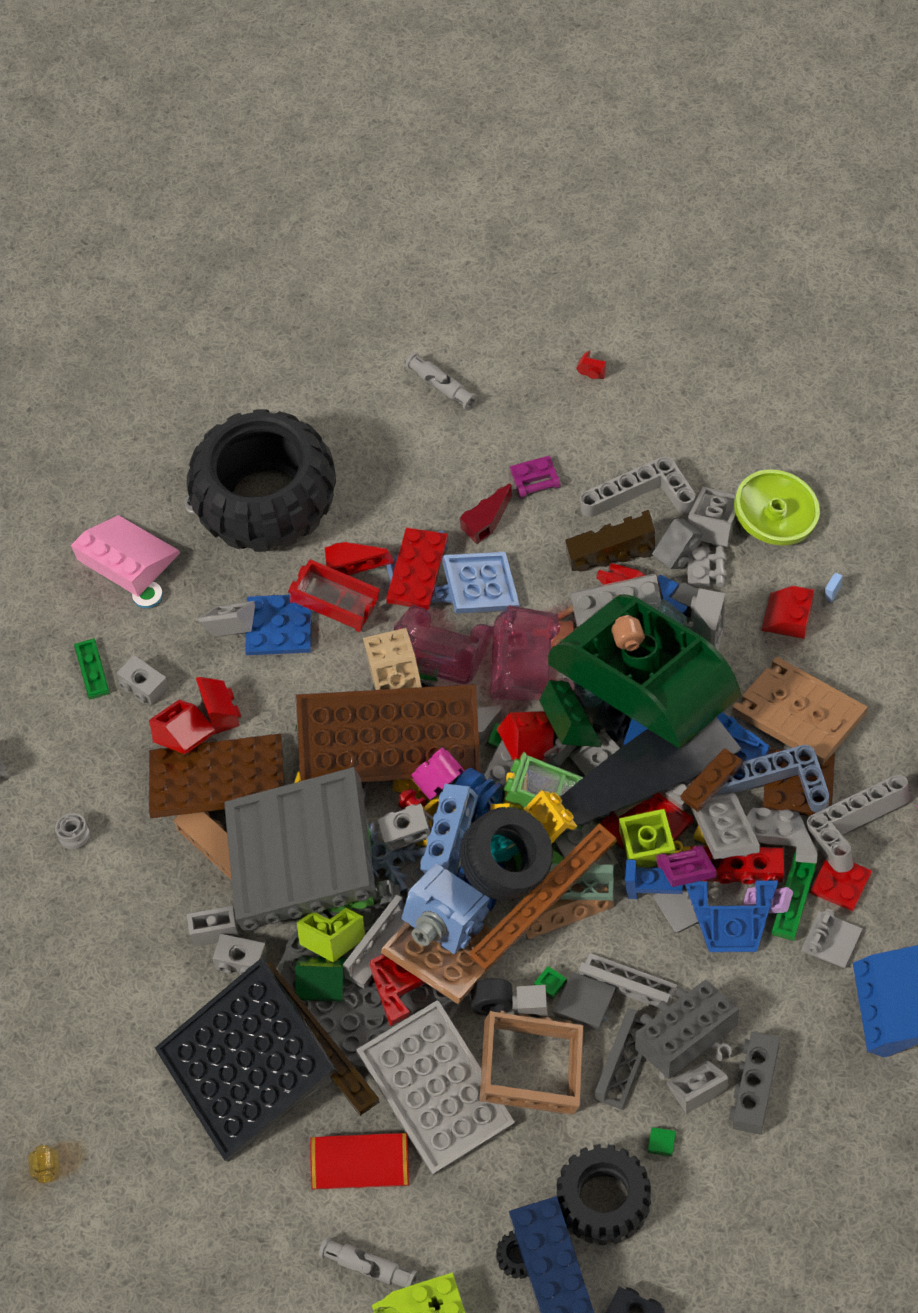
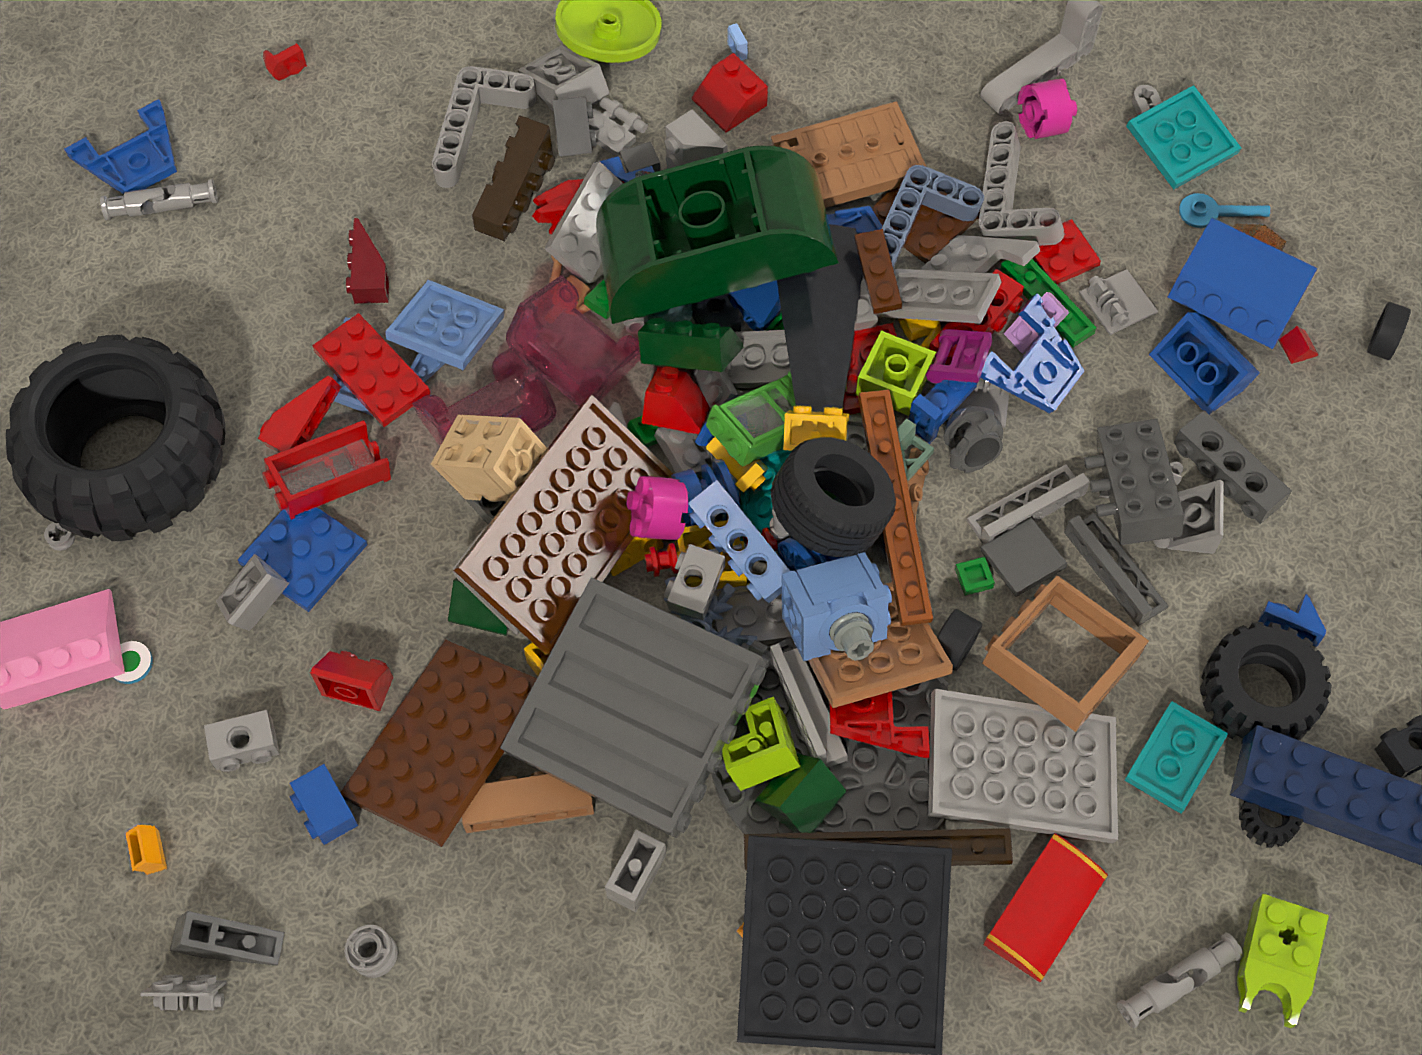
camera: 60 degrees left, 5 degrees up
(28, 759) = (226, 940): none -> dark grey slope
(49, 684) = (145, 849): none -> light orange piece
(91, 669) = (169, 788): green tile -> none
(134, 747) = (323, 805): none -> blue brick
(180, 727) = (350, 736): red slope -> none
(230, 947) = (701, 850): light grey brick -> none
(460, 351) = (136, 162): none -> blue wing
(516, 1175) = (1176, 757): none -> teal plate
(531, 1001) = (998, 605): light grey brick -> none
(534, 471) = (354, 193): magenta plate -> none
(627, 633) = (686, 203): nougat head -> none
(653, 915) = (981, 438): none -> dark grey helmet
(661, 1141) = (1232, 595): green tile -> none
(671, 1192) = (1304, 620): none -> blue slope
(825, 1018) = (1203, 362): none -> blue slope
(894, 1070) = (1297, 345): none -> red slope

